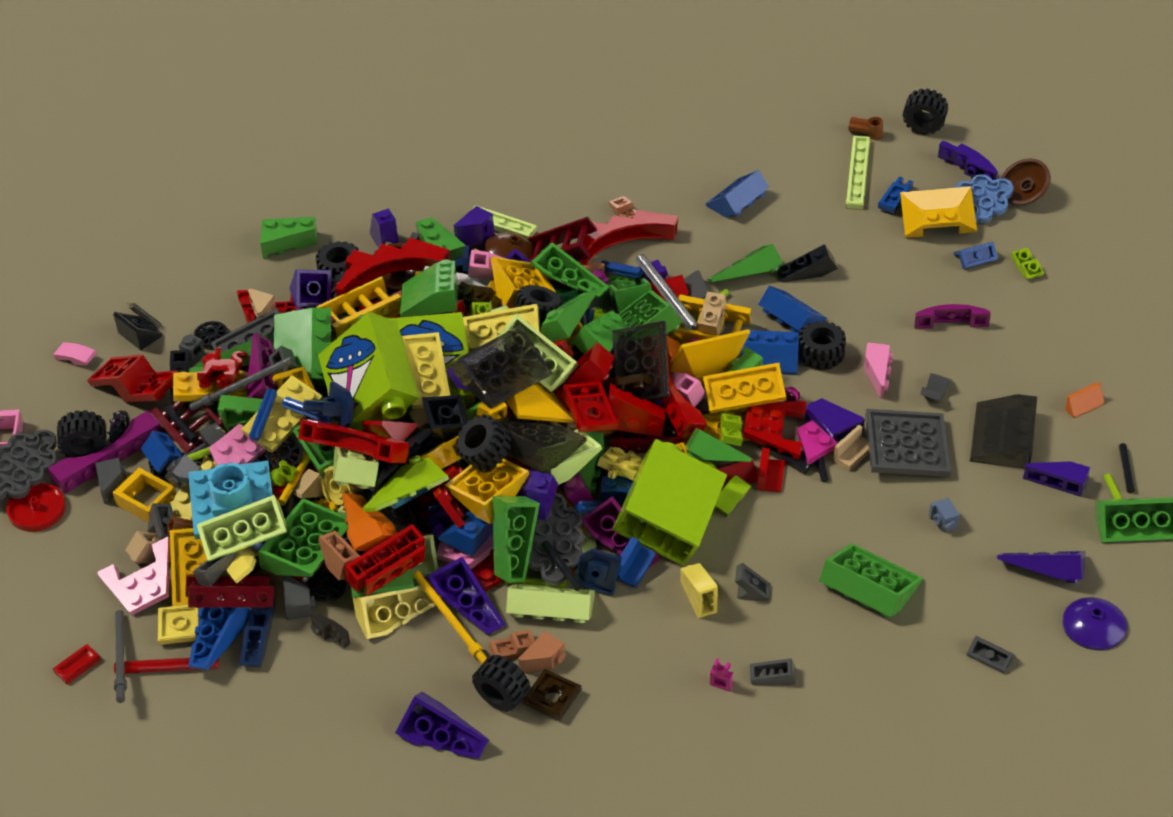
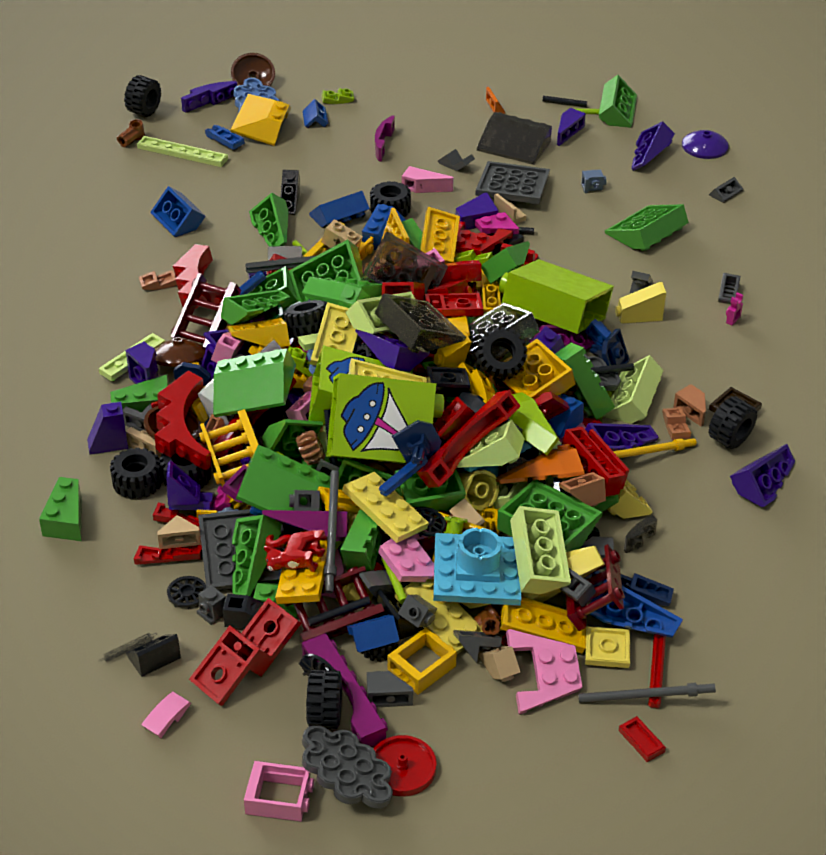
camera: 80 degrees left, 5 degrees down
(263, 414) = (393, 511): blue axle -> none

